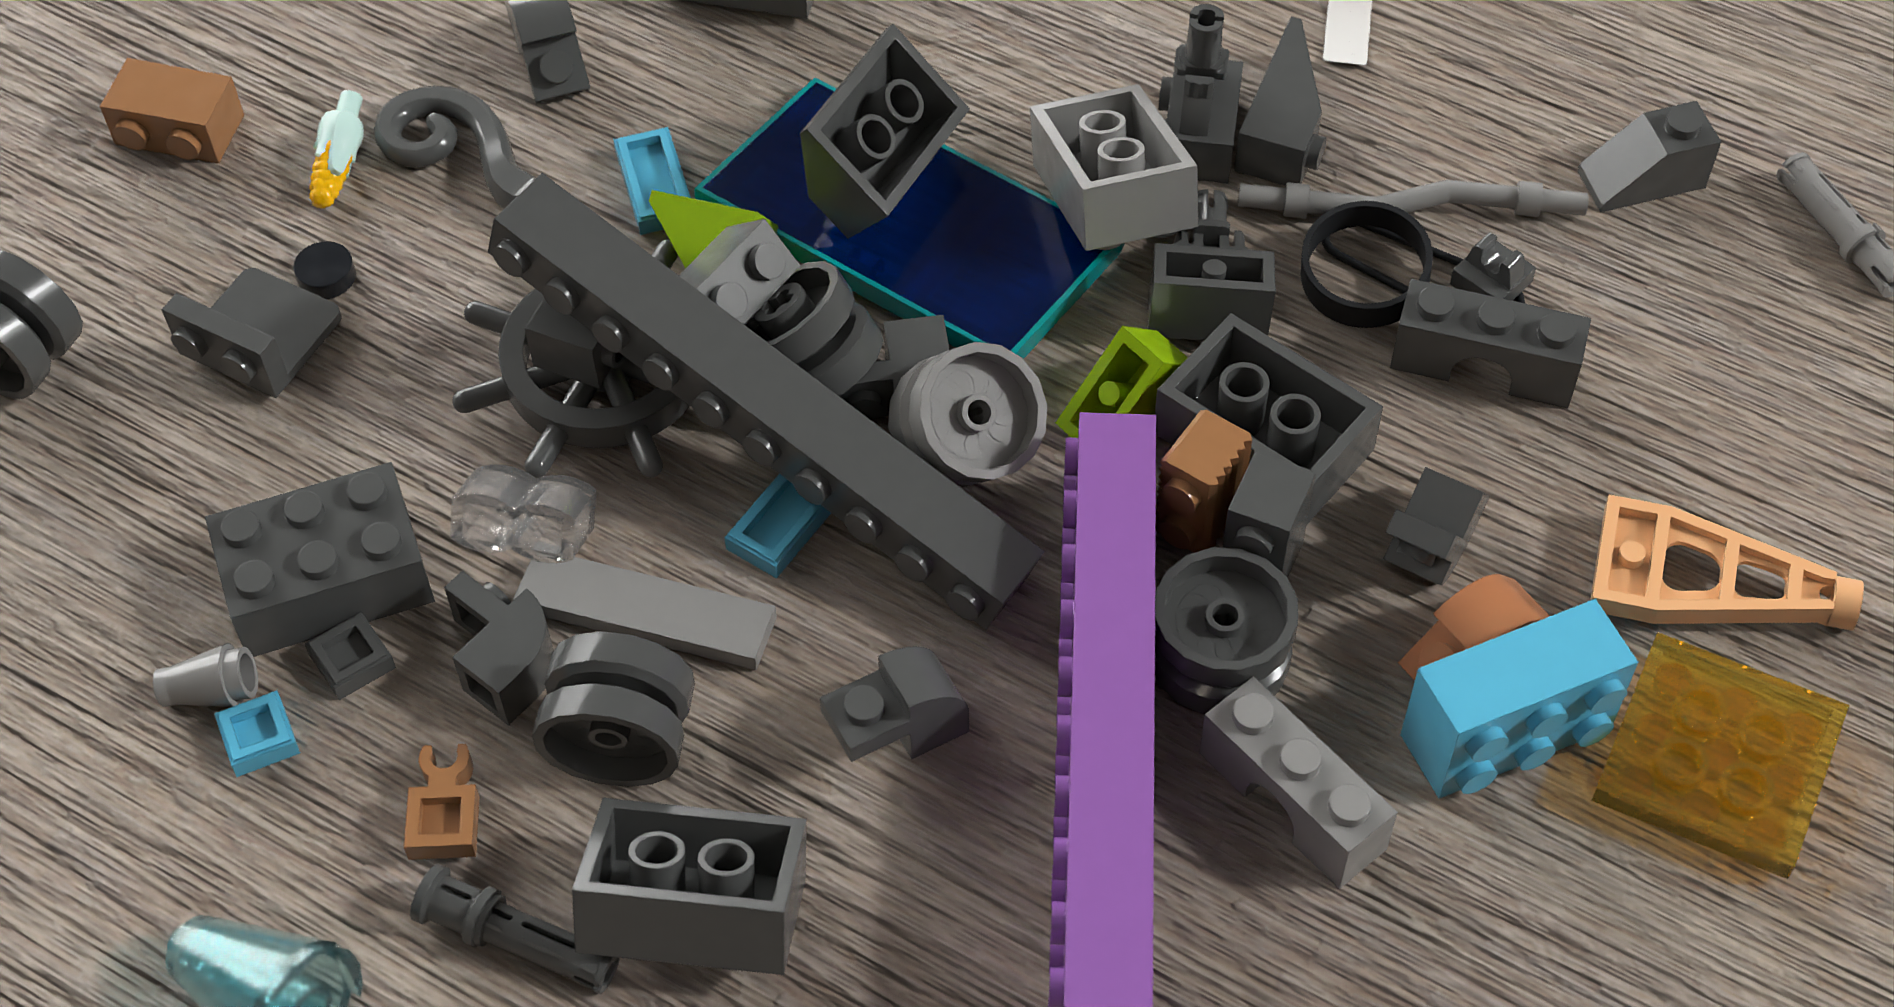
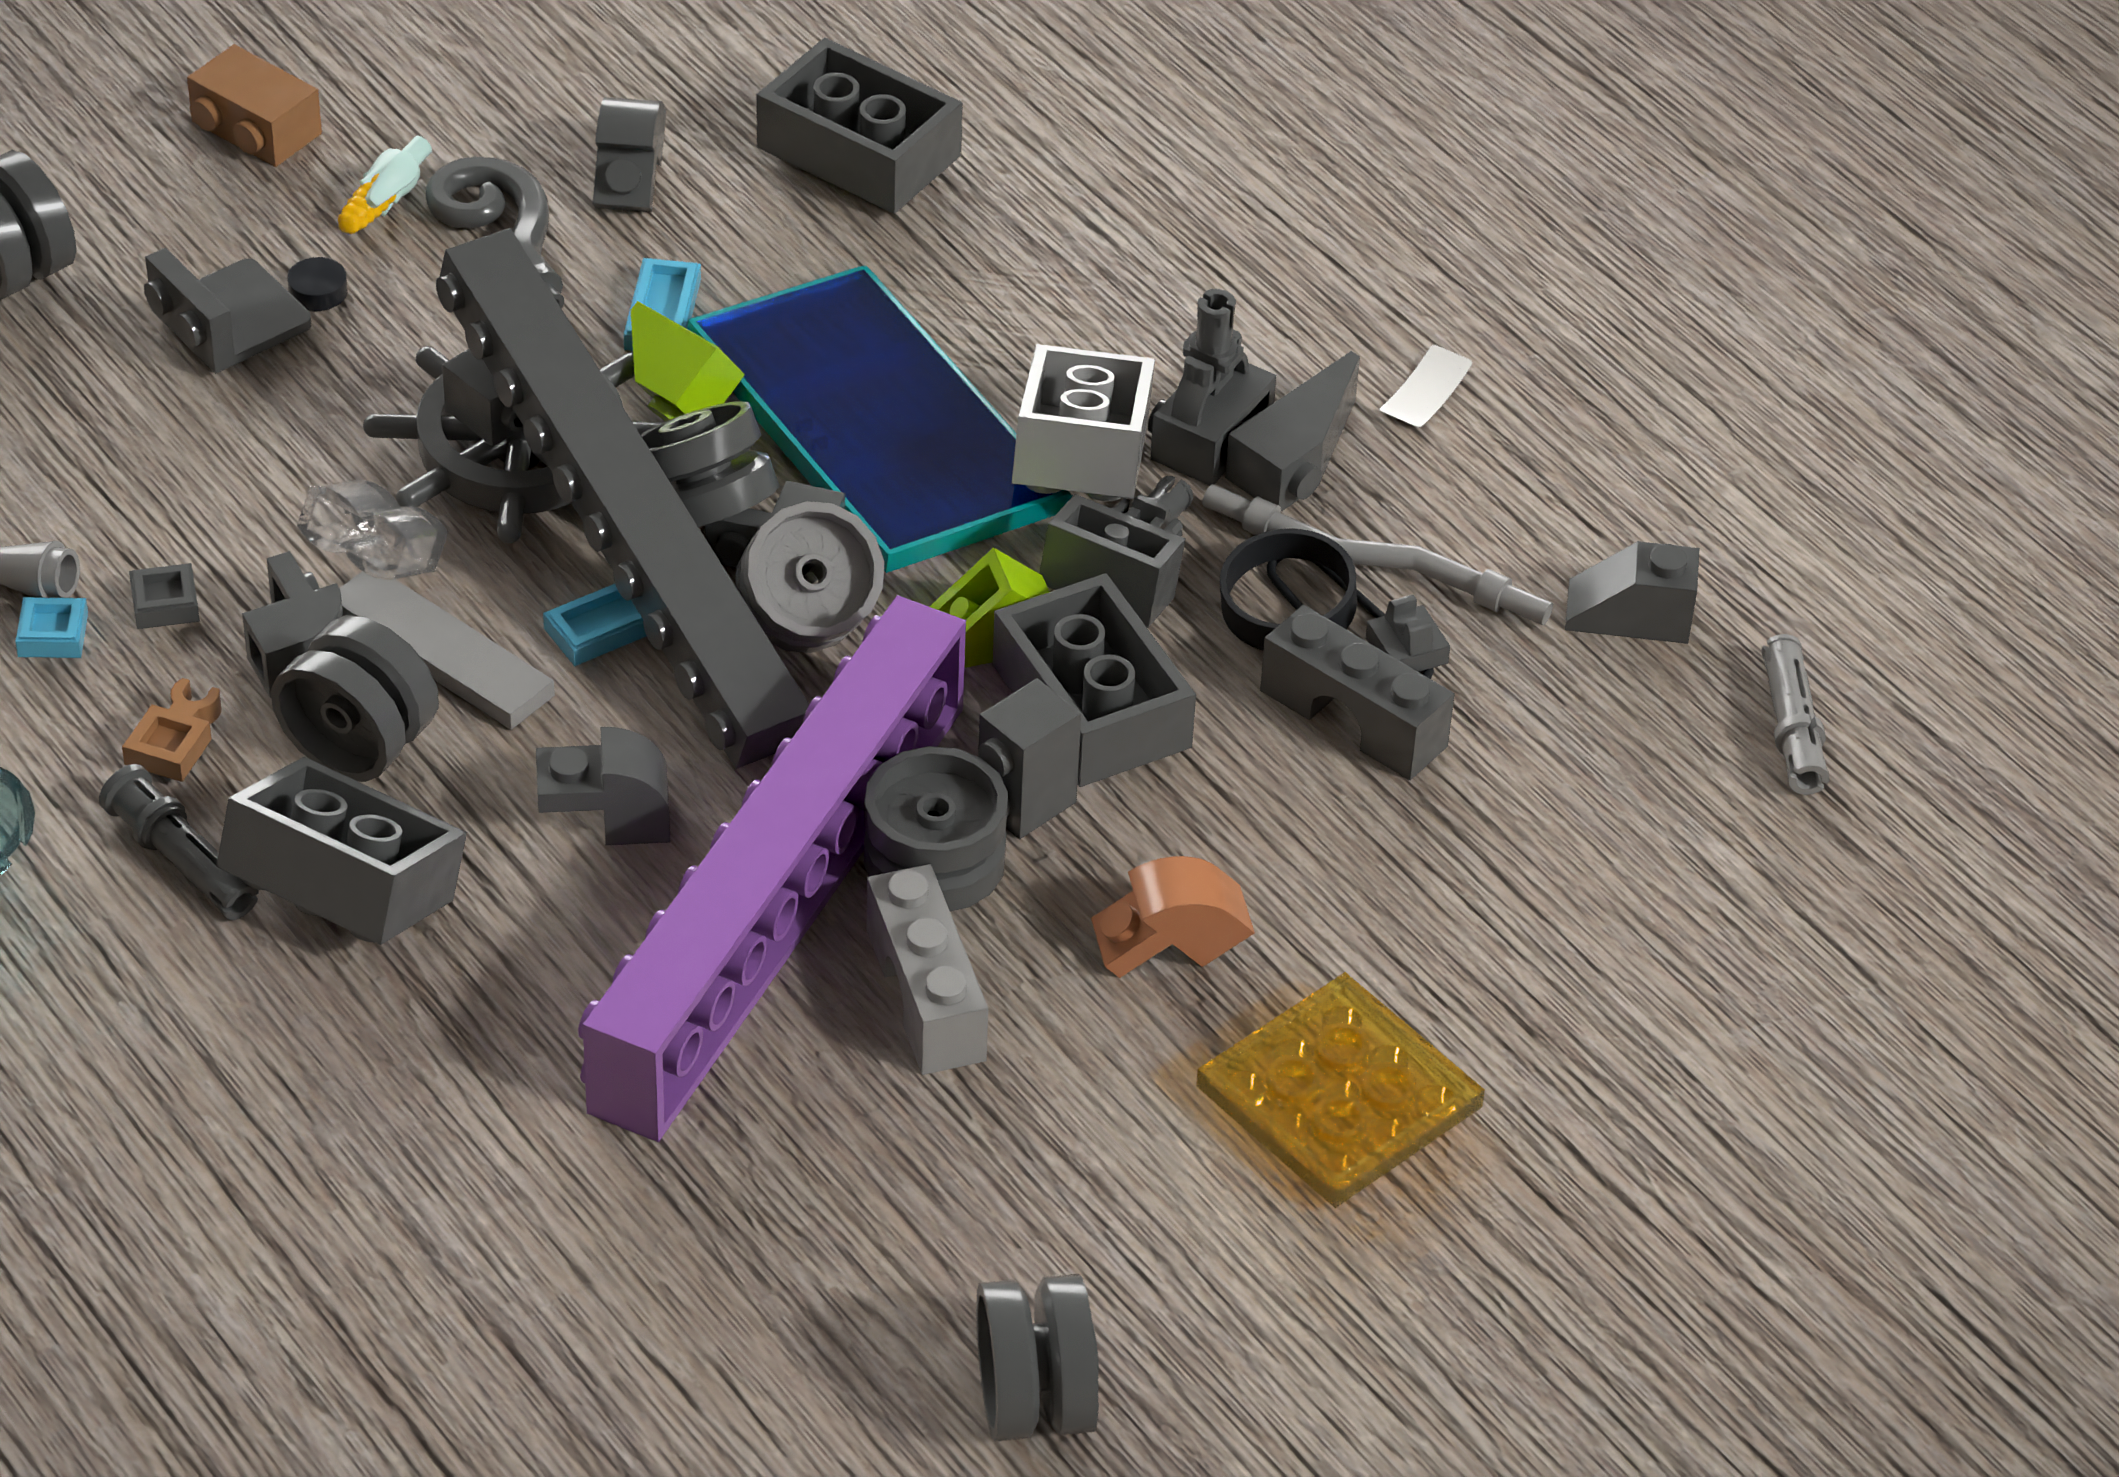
camera: 20 degrees right, 10 degrees down
(318, 559) = (177, 504): dark grey brick -> none
(742, 268) = (668, 387): brick -> none
(877, 133) = (868, 312): dark grey slope -> none
(1200, 481) = (981, 680): medium nougat brick -> none
(1435, 526) = (1199, 818): dark grey brick -> none
(1517, 699) = (1163, 967): medium azure brick -> none
(1633, 560) = (1384, 899): light nougat plate -> none

